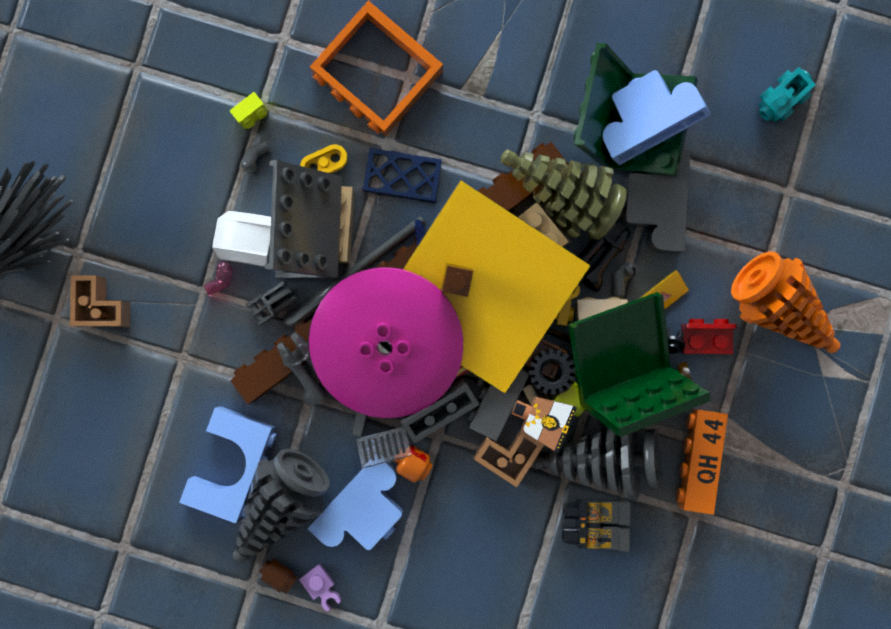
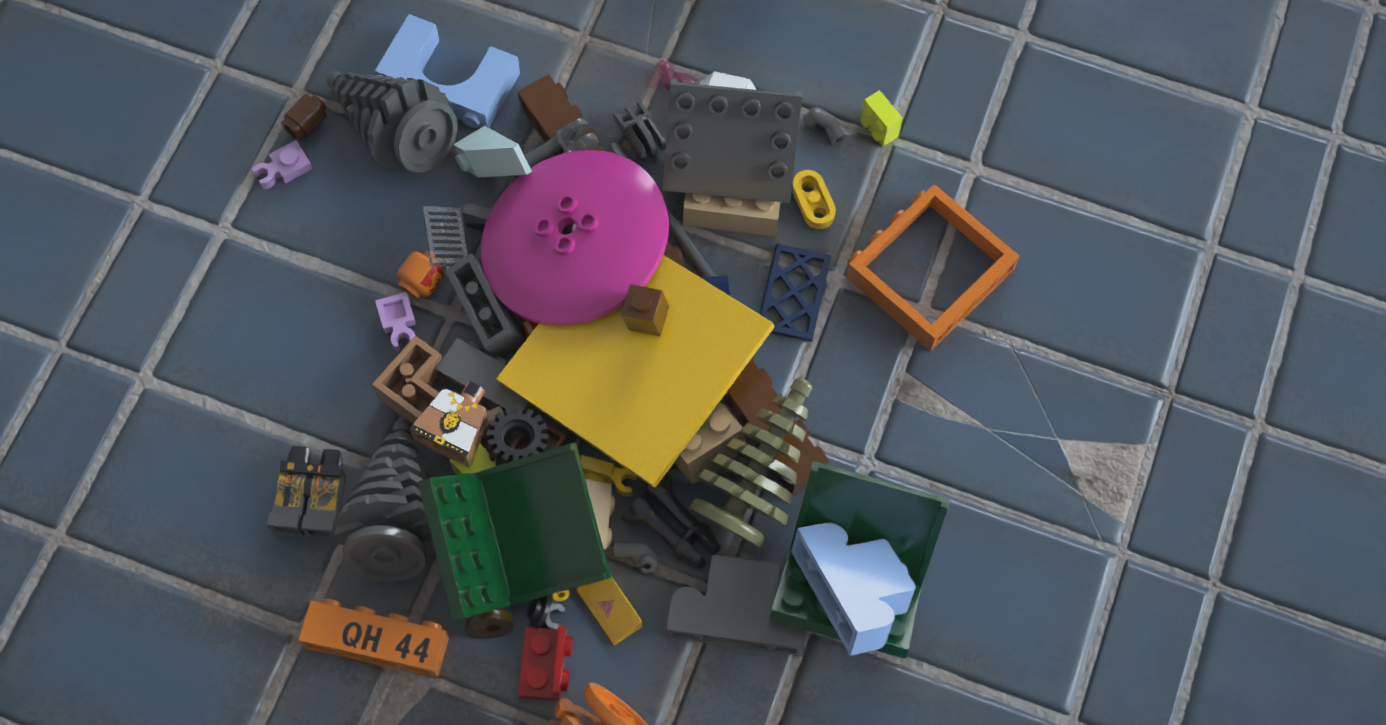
camera: 90 degrees right, 20 degrees down
(309, 420) = (490, 154): none -> light aqua slope
(361, 509) = (370, 212): light blue brick -> none
(447, 478) = (396, 317): none -> lavender plate

